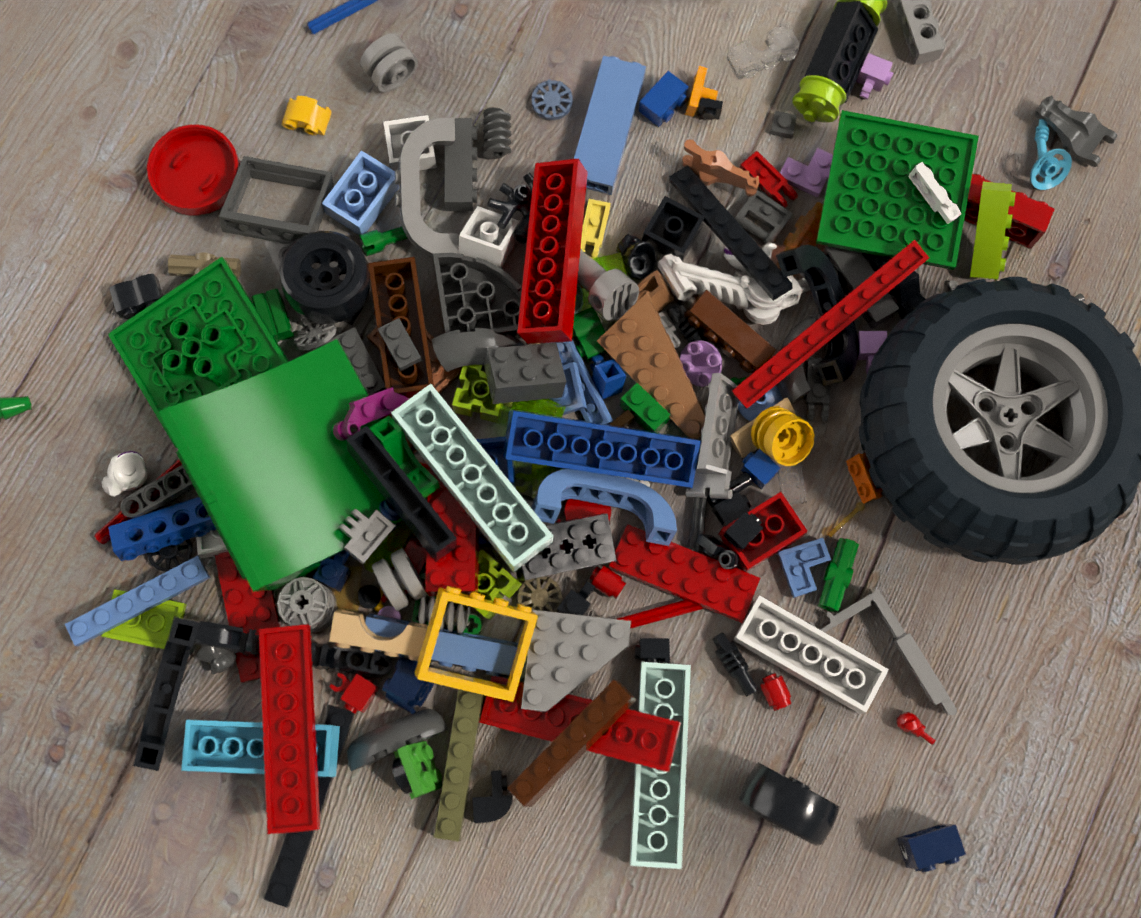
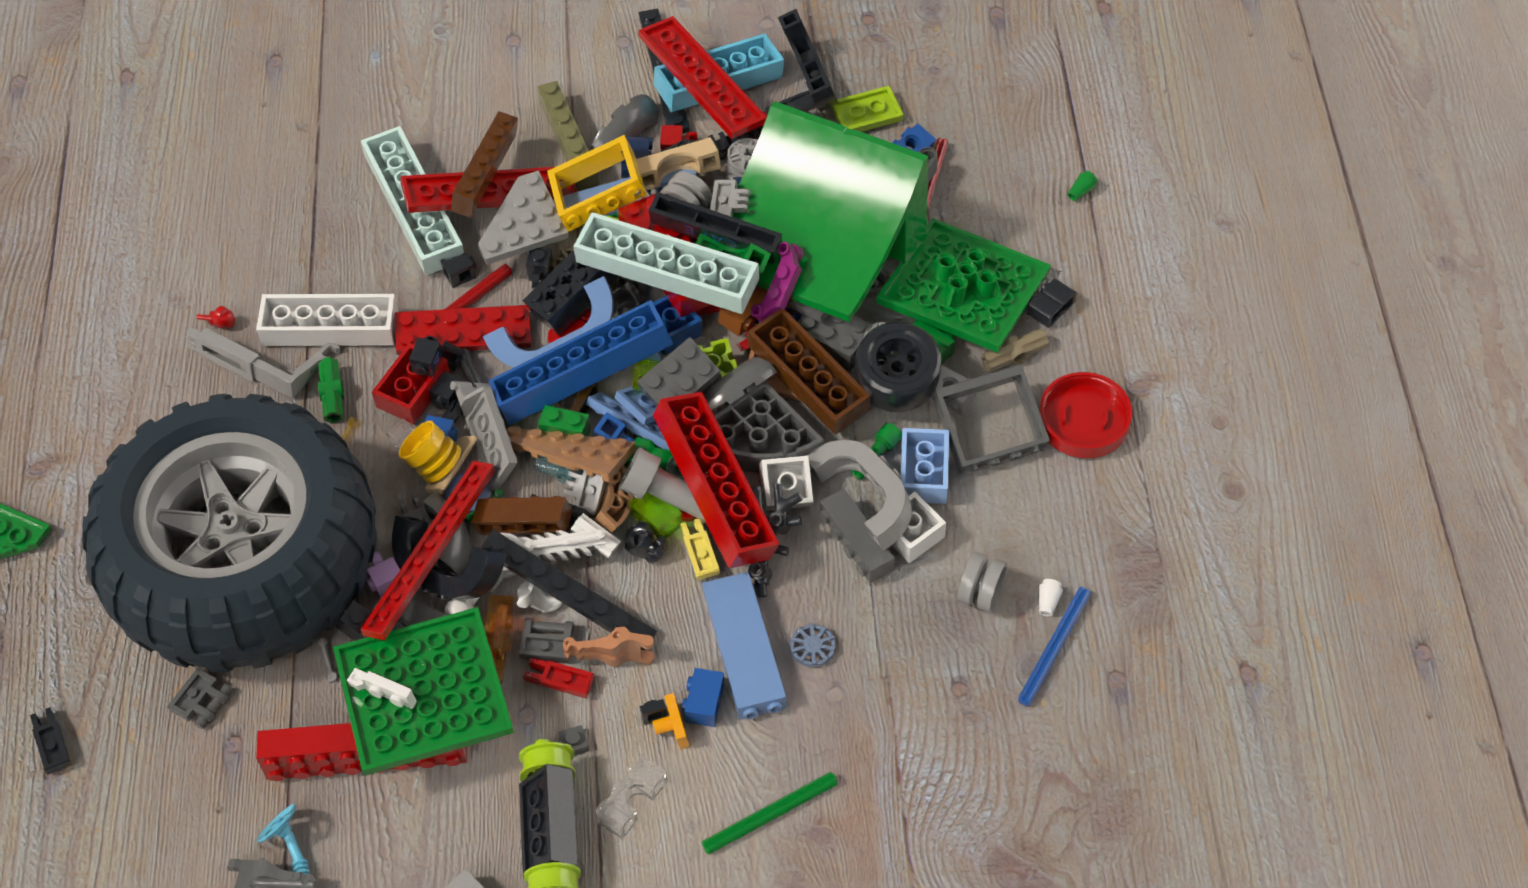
camera: 155 degrees right, 20 degrees down
(124, 473) = (955, 180): white hair -> none
(137, 601) = (887, 102): medium blue plate -> none
(306, 114) = (1026, 510): yellow cylinder -> none
(341, 36) = (1049, 595): none -> white cone
(399, 344) = (797, 344): dark grey plate -> none
(416, 770) = (593, 110): bright green piece -> none
(496, 133) = (840, 581): dark grey piece -> none
(496, 806) = (529, 125): black brick -> none
(607, 581) = (518, 293): red brick -> none
(673, 228) = (624, 576): black brick -> none
(700, 361) = (536, 484): lavender dish -> none
(734, 663) = (384, 287): black hinge -> none
(776, 691) = (342, 285): red brick -> none
(788, 804) = (296, 219): black wheel -> none
(797, 562) = (367, 378): medium blue plate -> none
(811, 177) = (526, 701): lavender plate -> none
(874, 74) = (504, 834): lavender brick -> none
(931, 846) = (171, 242): dark blue brick -> none
(990, 230) = (312, 708): lime brick -> none

